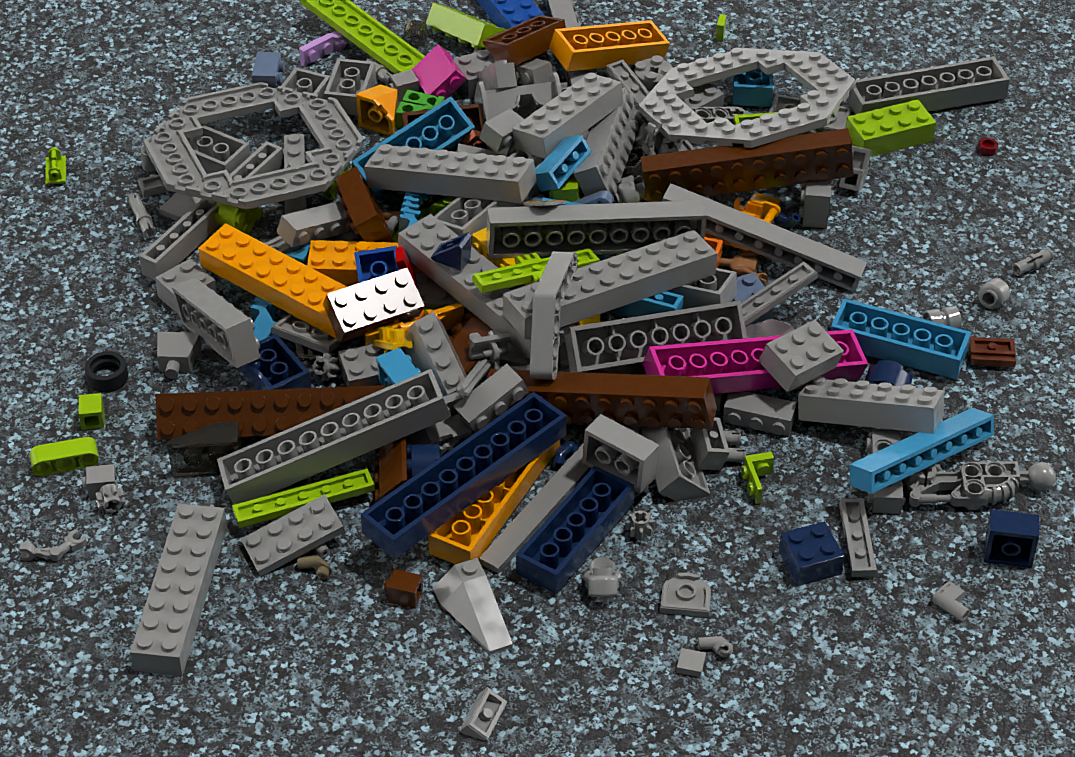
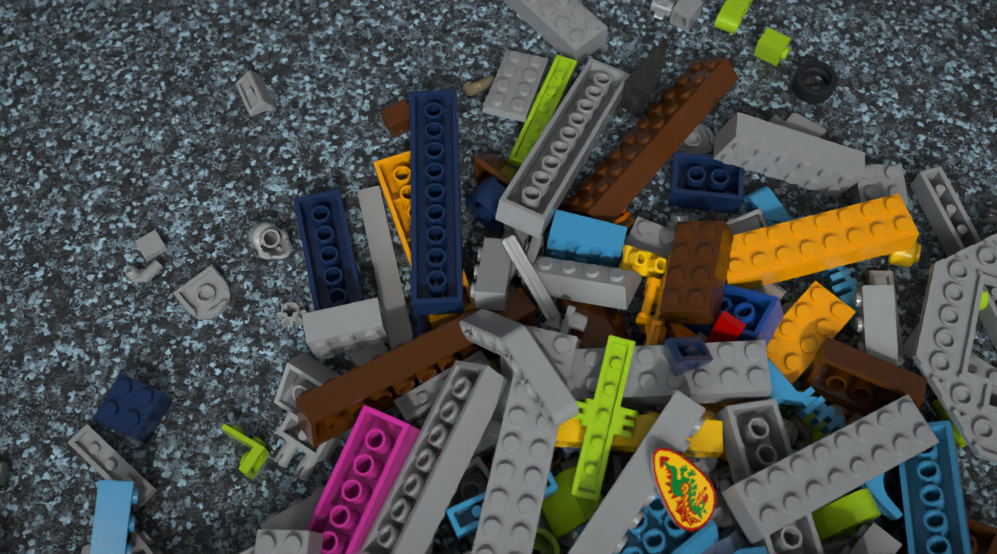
camera: 135 degrees right, 20 degrees up
(470, 600) = (342, 153): light grey wedge -> none

